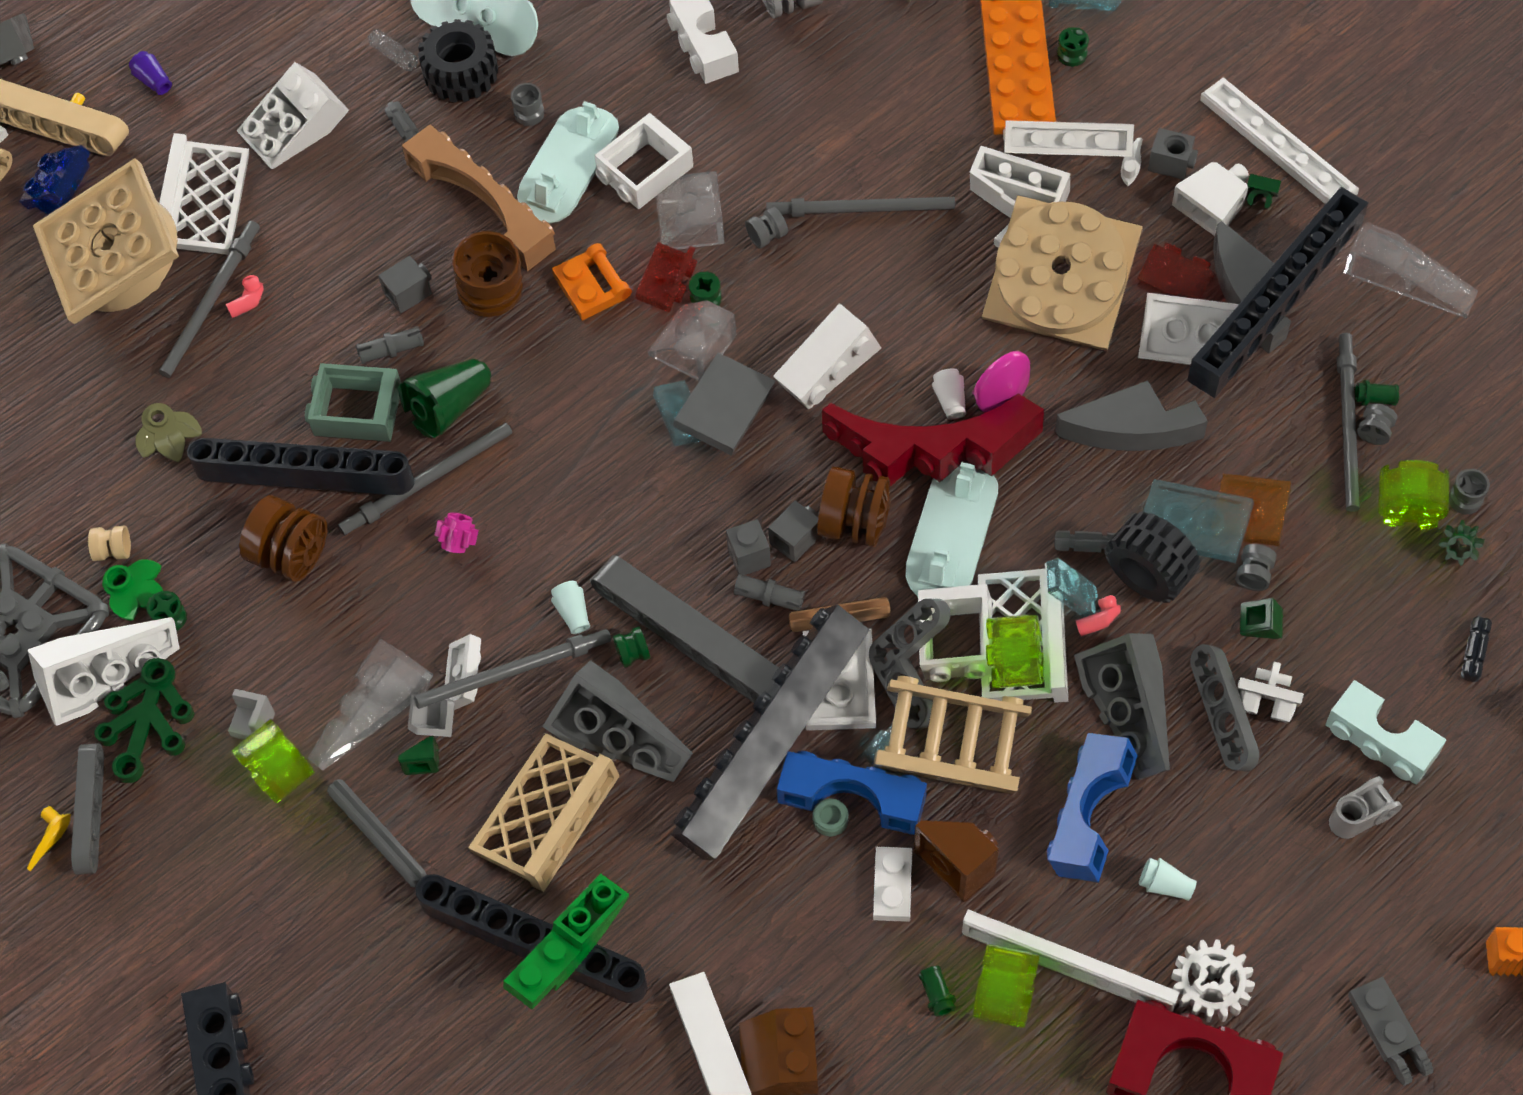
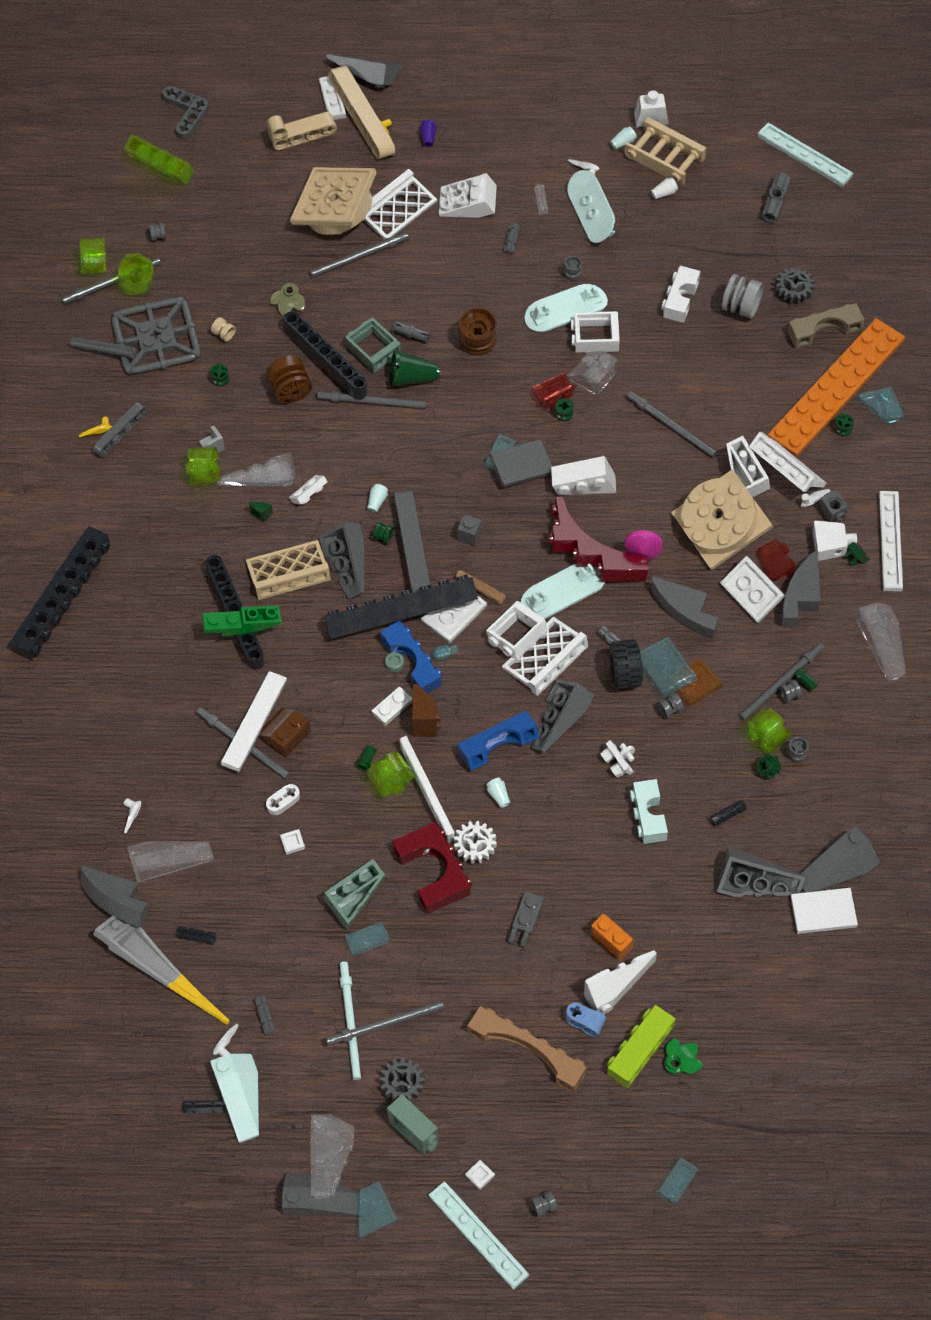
camera: 40 degrees right, 0 degrees up
(56, 179) = (344, 153): clear blue plate -> none
(88, 666) = (169, 373): white wedge -> none
(135, 591) = (217, 356): green plate -> none
(143, 716) = (173, 410): dark green plant -> none
(249, 299) = (375, 267): coral arm -> none
(376, 832) = (217, 524): dark grey axle -> none
(406, 284) = (443, 310): dark grey brick -> none
(432, 719) = (278, 496): light grey panel -> none
(435, 157) = (512, 326): medium nougat arch -> none
(456, 42) = (561, 214): black tyre -> none
(456, 532) = (360, 431): dark pink gear -> none
(574, 647) = (362, 515): dark grey bar -> none
(582, 286) = (516, 366): orange plate -> none
(695, 337) = (539, 426): clear slope -> none
(766, 227) = (622, 404): dark grey wheel -> none
(769, 592) = (460, 555): dark grey pin -> none
(794, 531) = (496, 538): dark grey brick -> none
(853, 506) = (526, 546): reddish brown wheel -> none
(898, 659) = (479, 620): dark grey beam -> none
(950, 392) = (621, 531): white cone -> none
(964, 769) = (462, 684): tan fence -> none
(1015, 651) = (527, 654): clear neon green brick -> none
(1071, 587) = (581, 650): clear light blue plate -> none
(1099, 620) = (583, 674): coral arm -> none
(1220, 710) = (594, 748): dark grey beam -> none
(1261, 619) = (652, 729): dark green slope -> none
(1277, 292) = (800, 598): black brick -> none
(1369, 807) = (608, 832): light grey piece -> none

